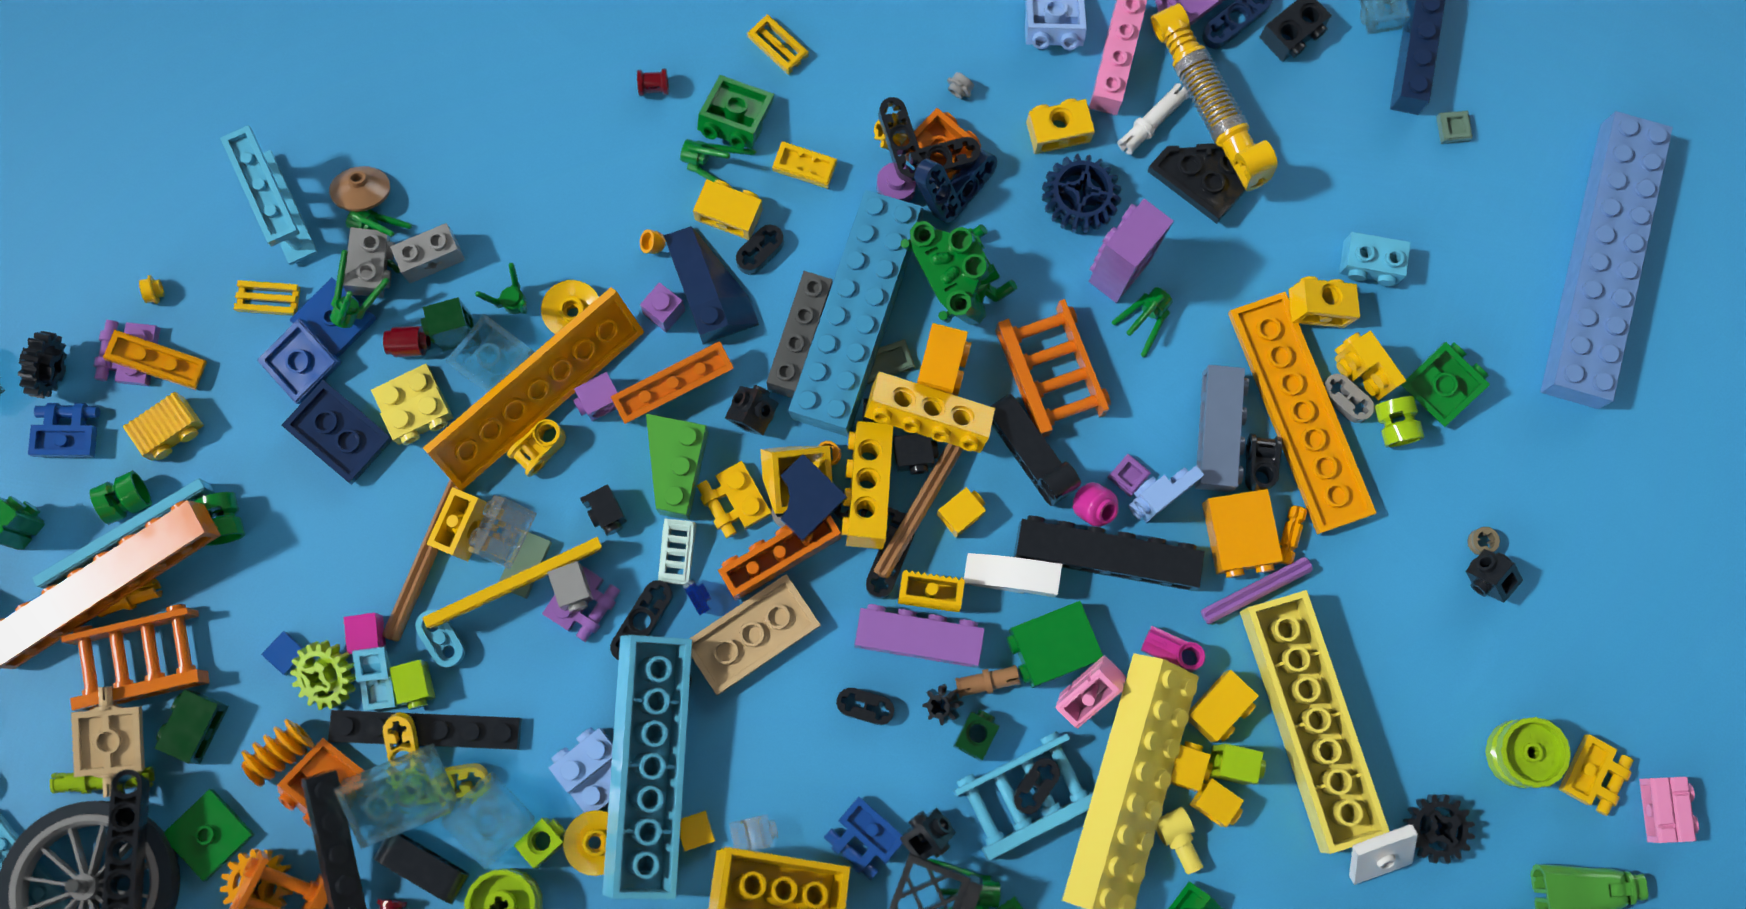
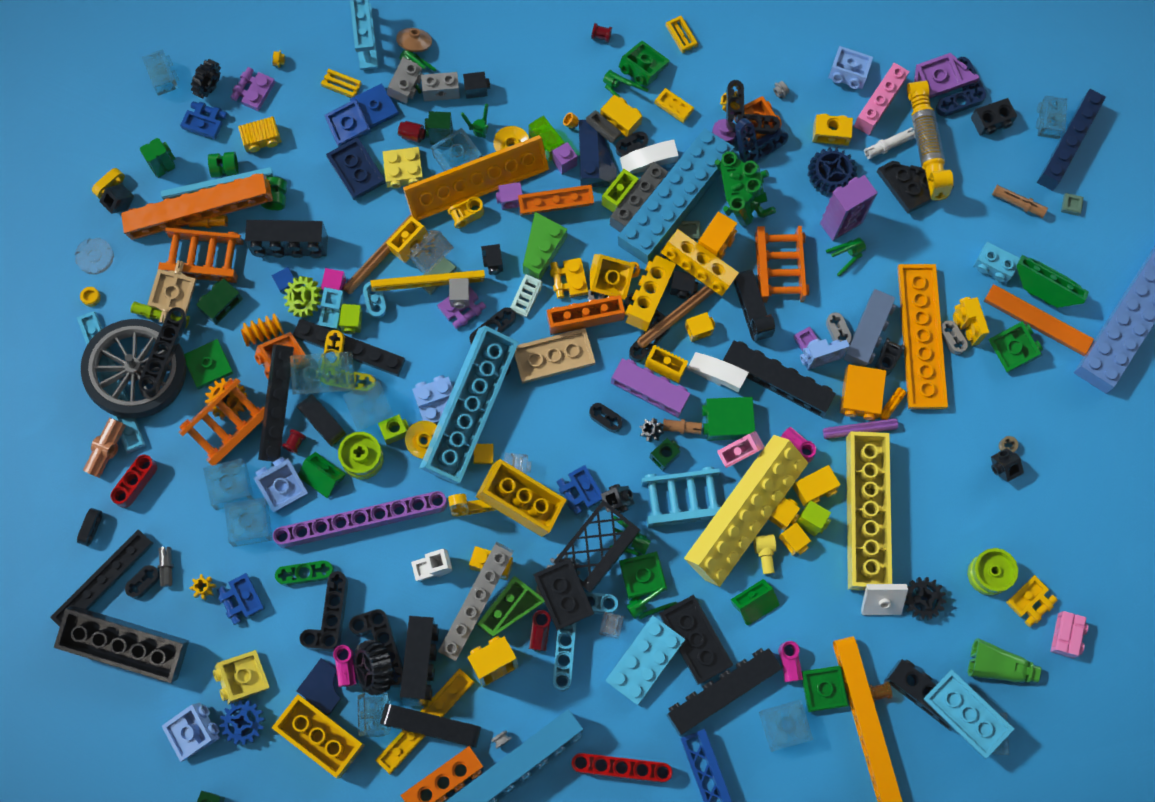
camera: 20 degrees right, 5 degrees down
(154, 360) = (267, 96): light orange tile -> none
(264, 589) = (286, 238): none -> black brick
(346, 308) = (384, 101): green plant -> none
(483, 232) = (476, 84): none -> black brick
(626, 281) = (549, 136): none -> clear neon green brick
(698, 596) = (530, 323): clear blue plate -> none
(706, 235) = (603, 126): none -> dark grey tile
(752, 409) = (596, 230): black brick -> none
(766, 334) = (618, 190): none -> lime brick
(788, 265) = (641, 159): none -> white slope
(811, 497) = (614, 286): dark blue tile -> none
(1029, 782) = (693, 495): black beam -> none
(1095, 504) = (780, 347): dark pink head -> none
(1178, 439) = (842, 327): none -> light grey beam
(1324, 302) = (956, 277): yellow brick -> none
(1387, 150) = (1020, 201): none -> medium nougat pin
(1400, 432) = (979, 359): lime wheel -> none
(1464, 327) = (1038, 320): none -> orange tile
(1466, 266) = (1049, 284): none -> green wedge

